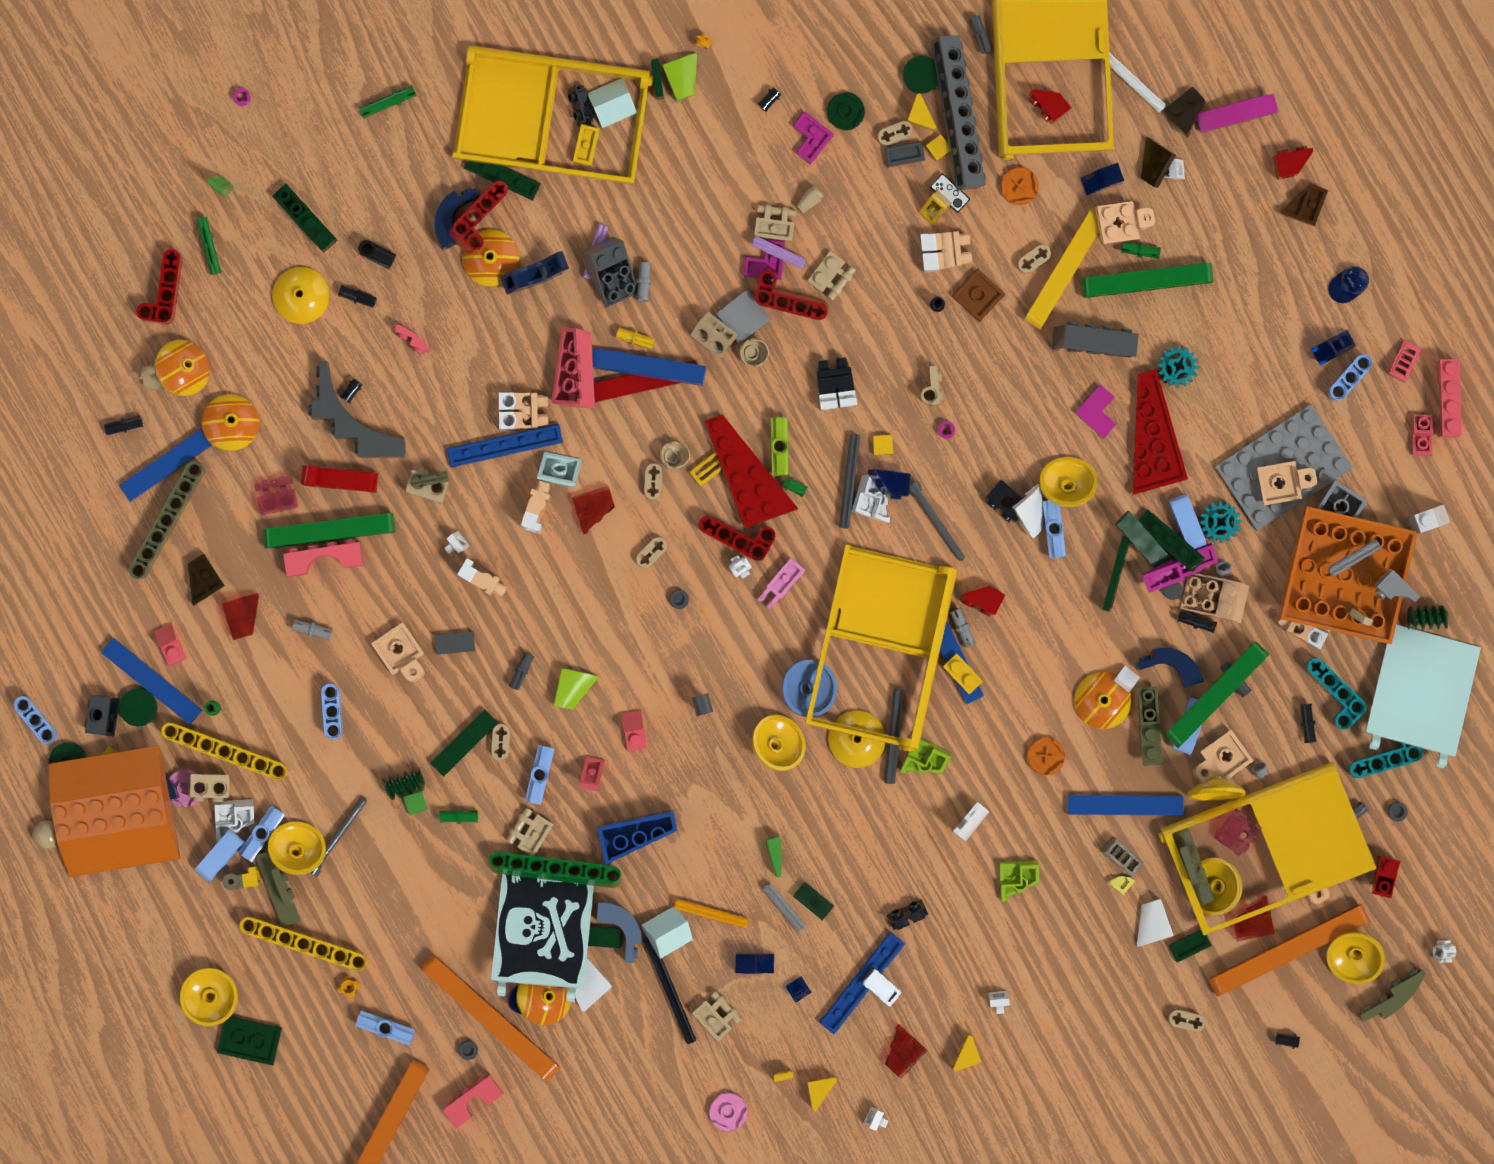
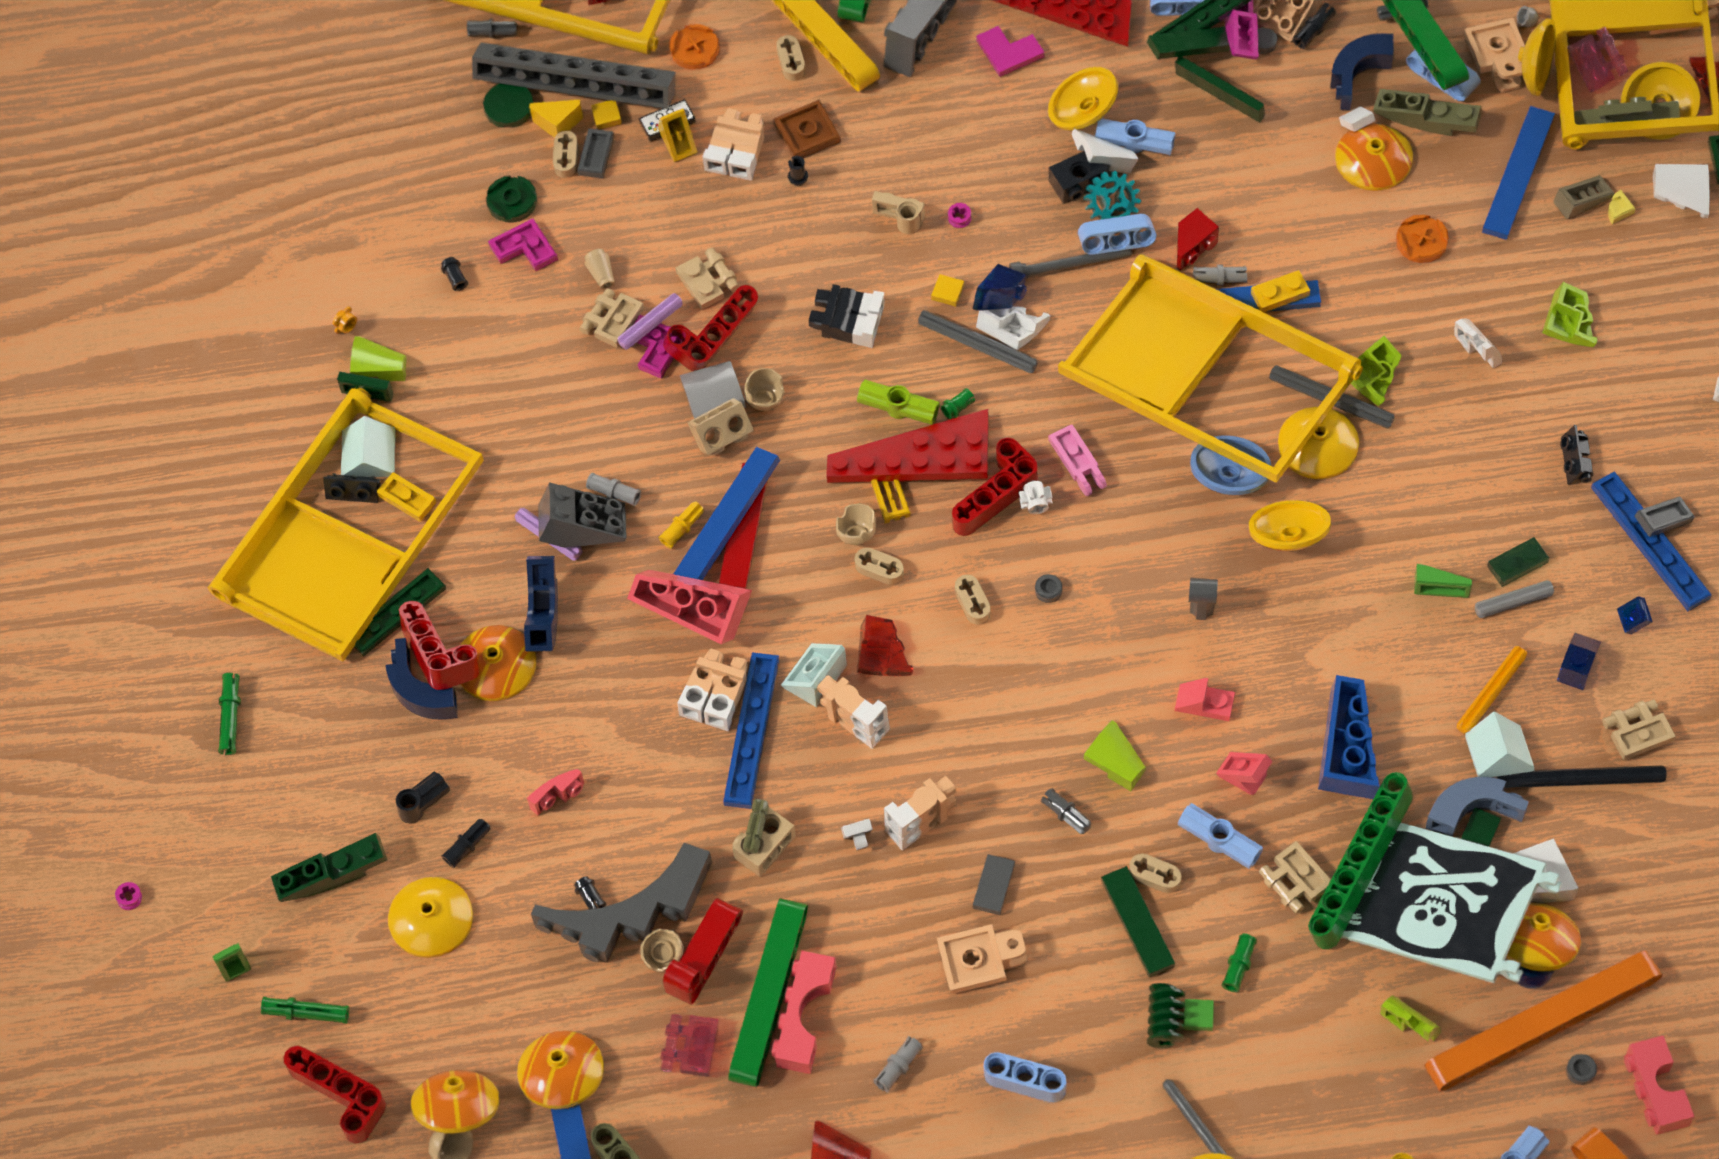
camera: 65 degrees left, 25 degrees down
(329, 453) = (660, 949): none -> tan hair
(458, 936) = (1404, 1016): none -> lime slope
(967, 545) = (1127, 239): none -> light blue beam
(988, 538) = (1102, 195): none -> teal gear

